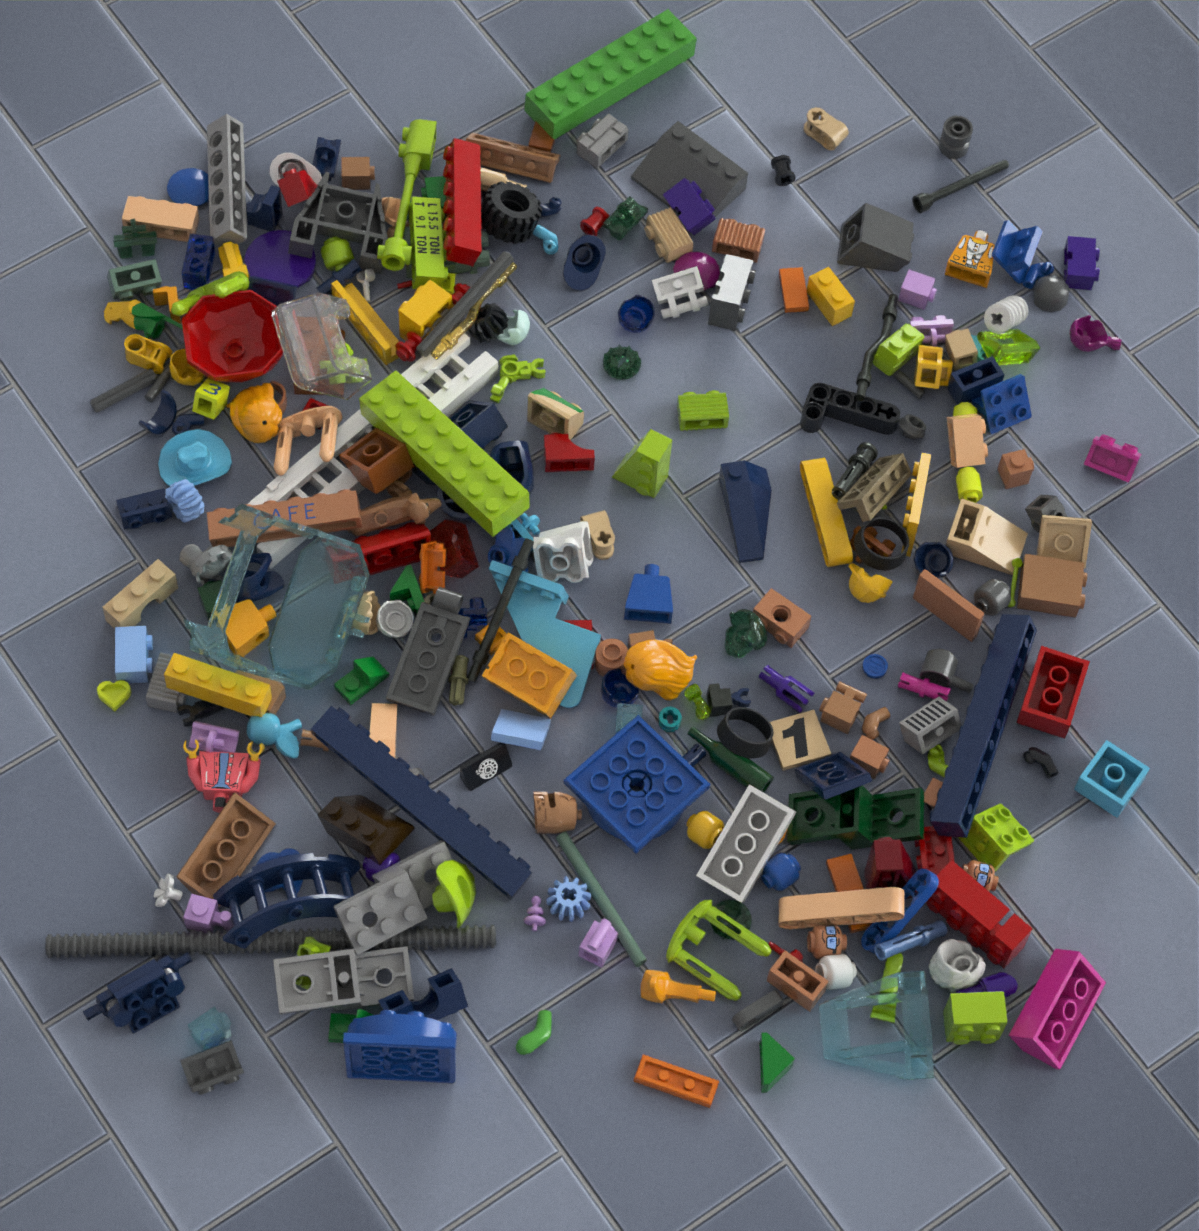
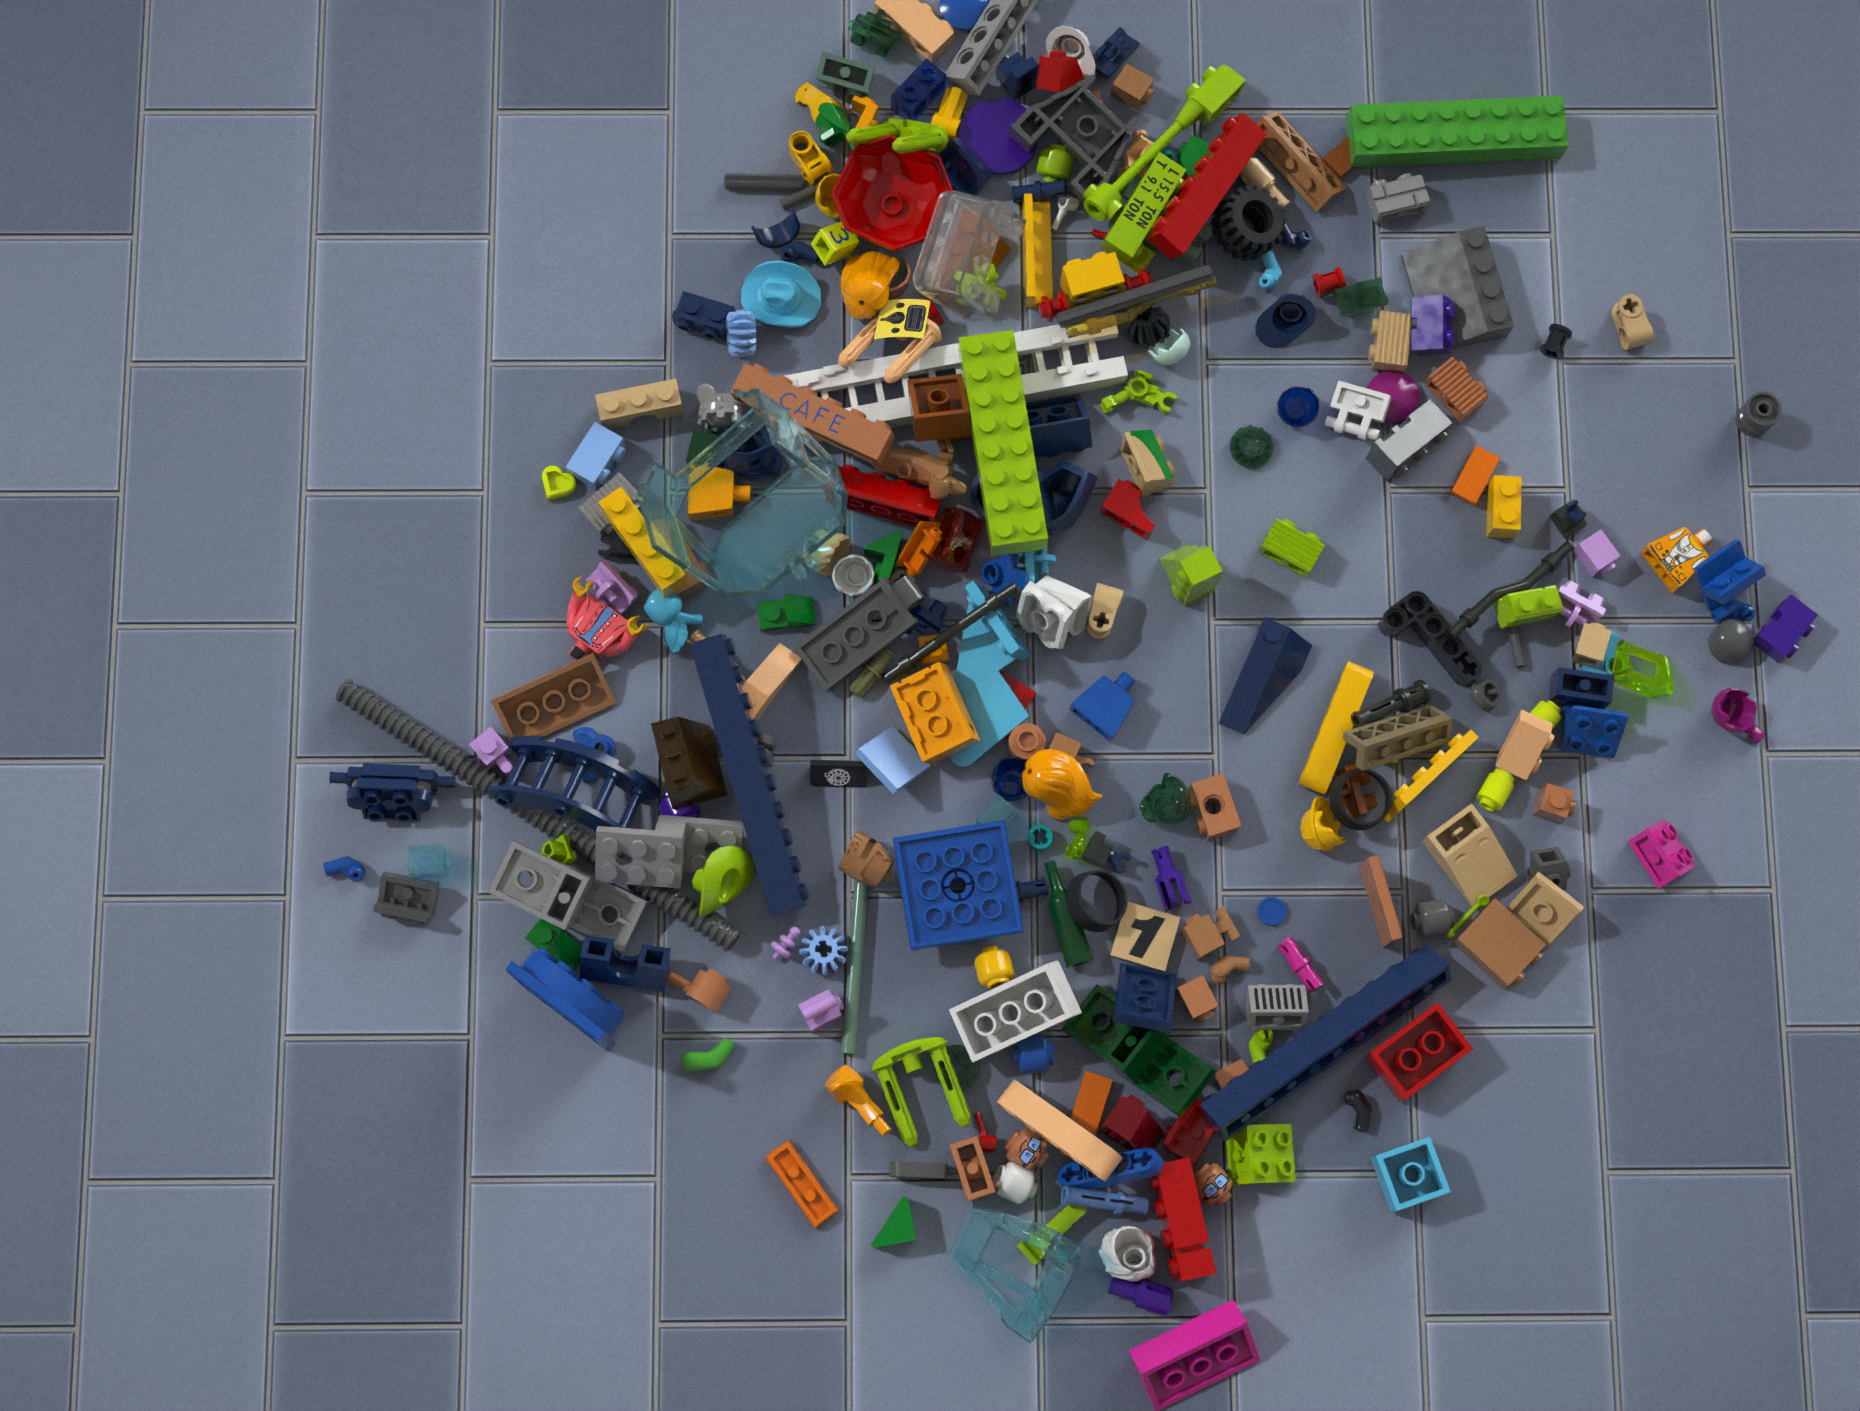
camera: 35 degrees right, 15 degrees up
(144, 1077) = (347, 866): none -> blue arm
(166, 891) = (477, 706): white plant -> none
(303, 417) = (902, 318): none -> sticker
(501, 984) = (706, 989): none -> nougat piece
(875, 240) = (1594, 475): dark grey slope -> none
(880, 278) = (1569, 518): none -> pearl dark grey piece
(924, 200) = (1675, 462): pearl dark grey piece -> none
(930, 368) = (1547, 647): yellow brick -> none
(934, 558) = (1402, 845): dark blue hair -> none
(940, 669) = (1328, 957): dark grey piece -> none
(975, 1017) = (1107, 1314): lime brick -> none
(1006, 314) = (1664, 638): white piece -> none

